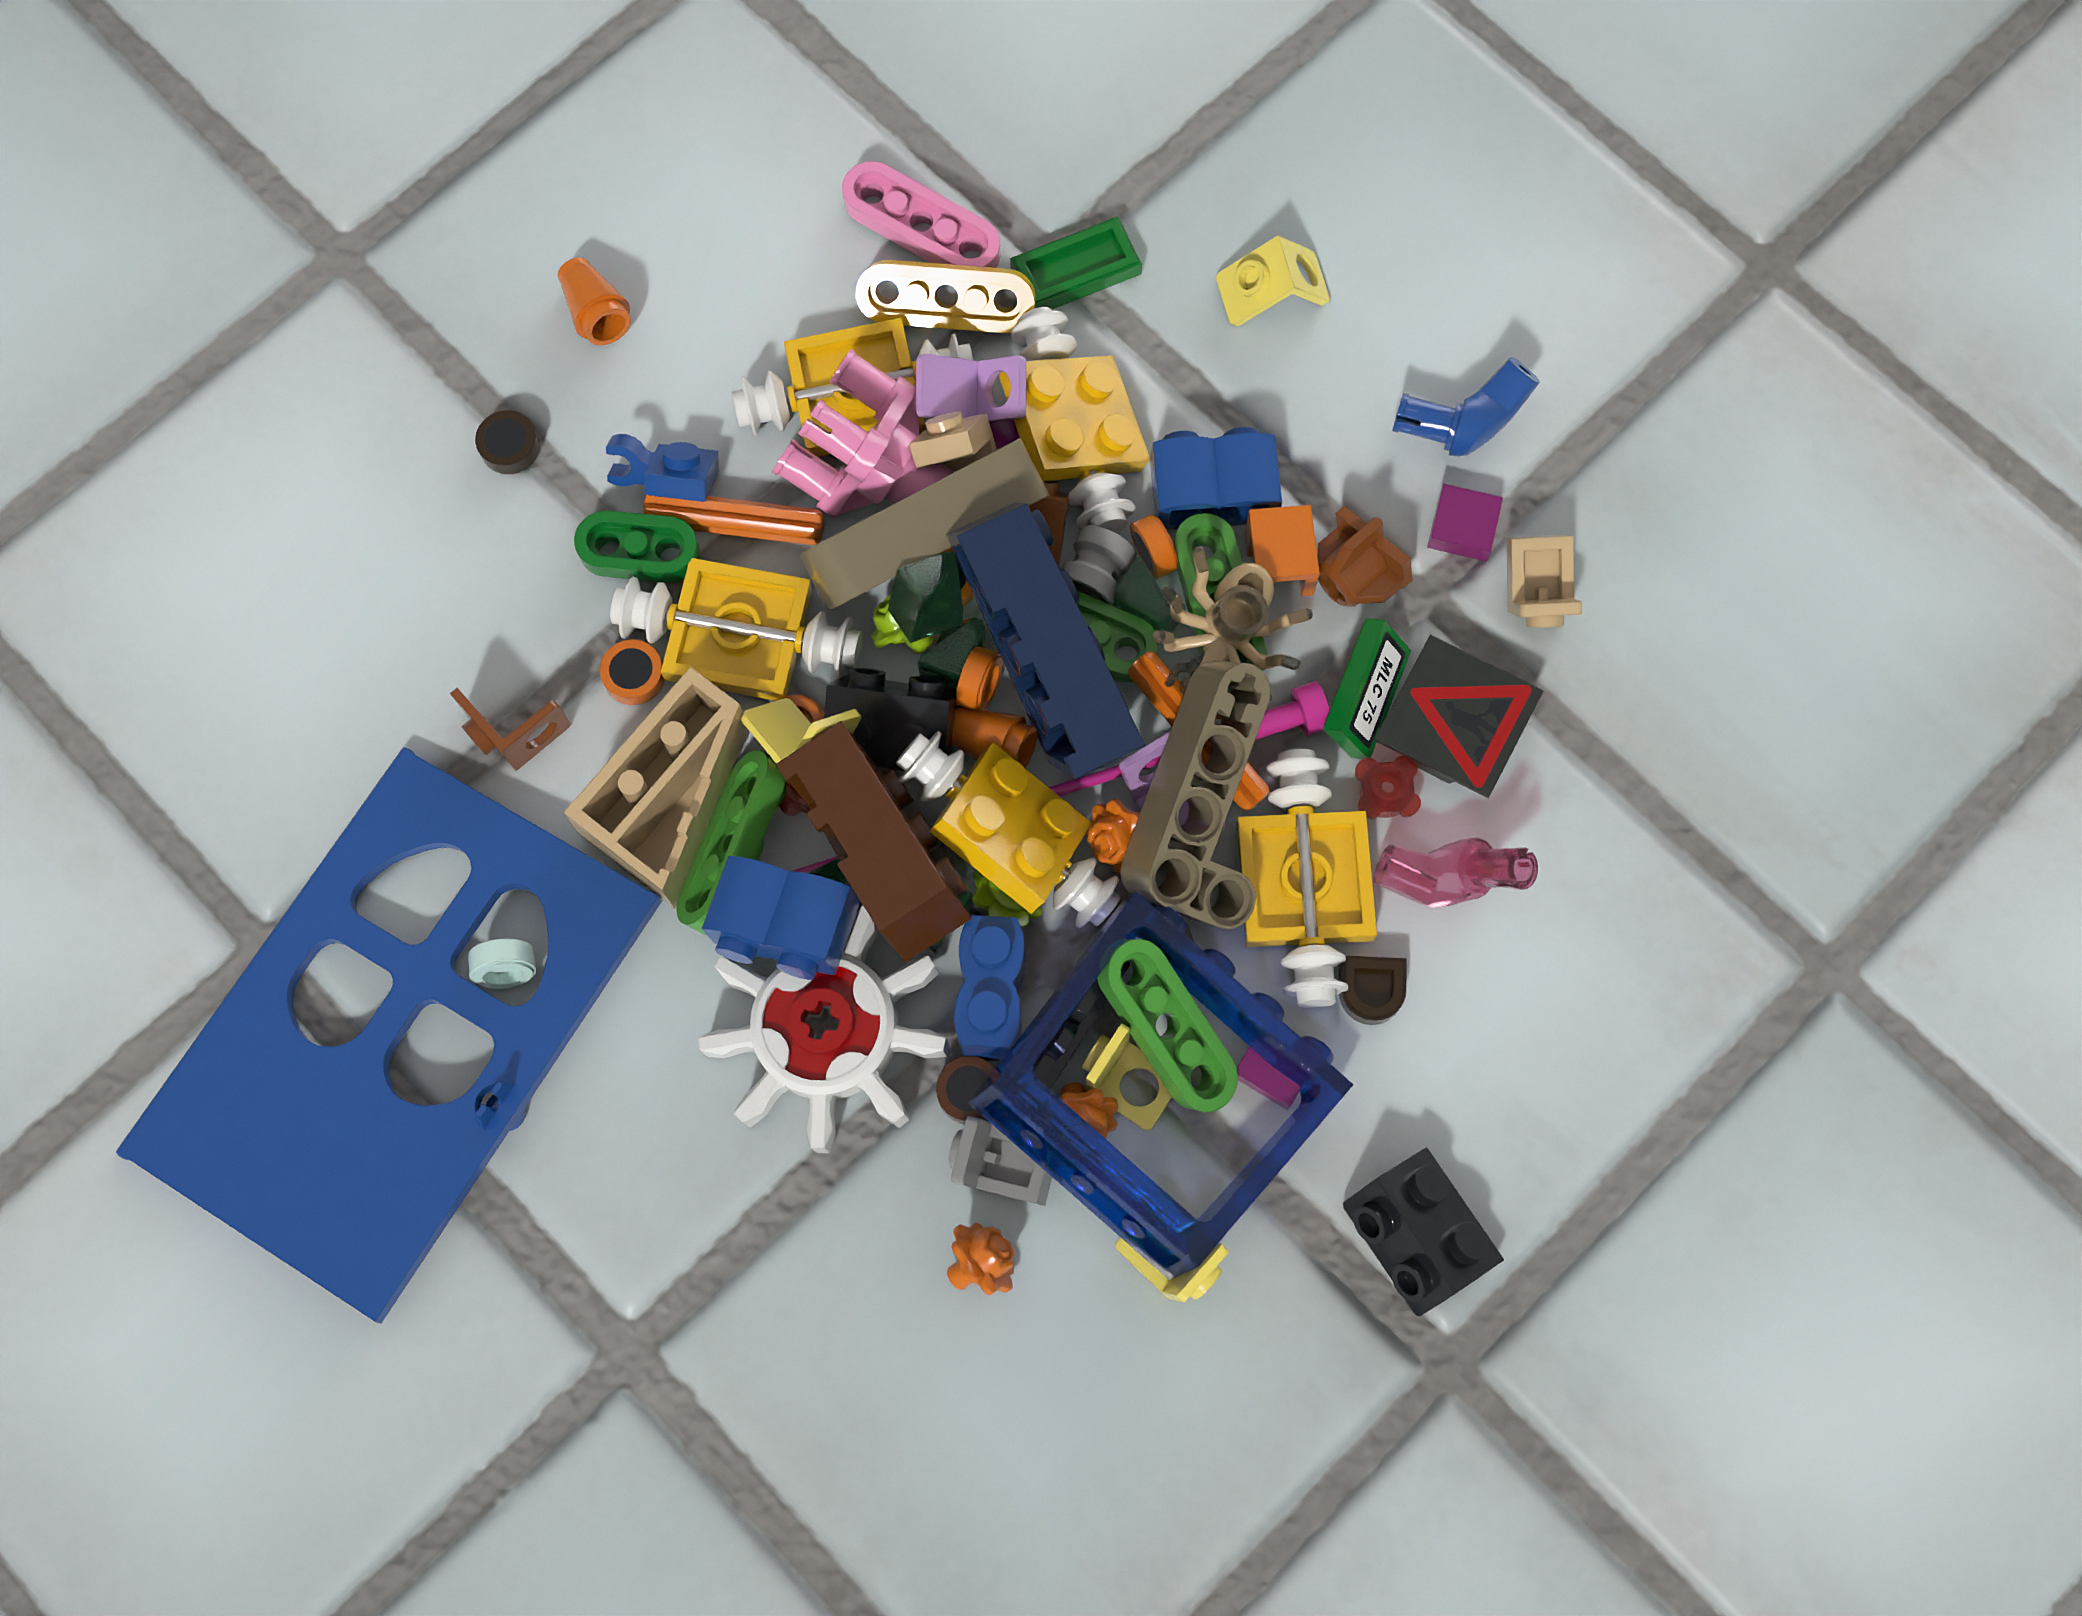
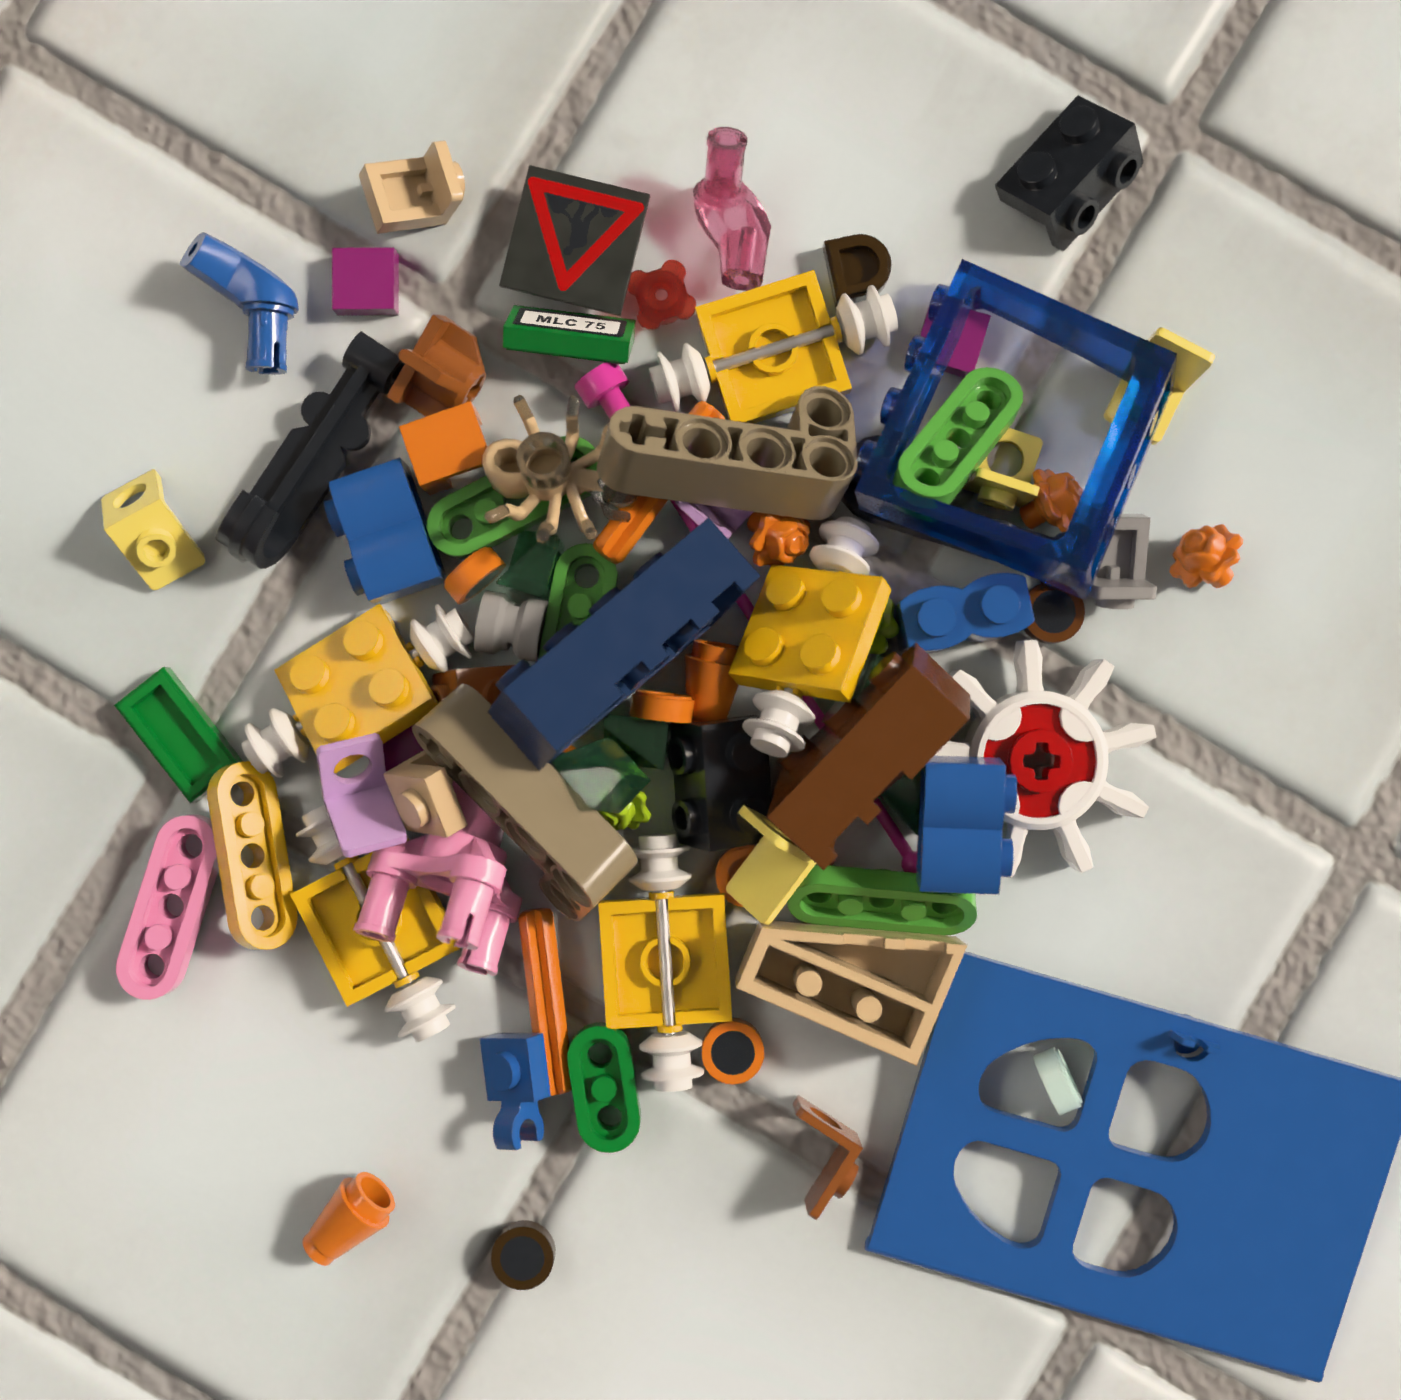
camera: 105 degrees left, 15 degrees up
(1302, 429) = (295, 482): none -> black piece

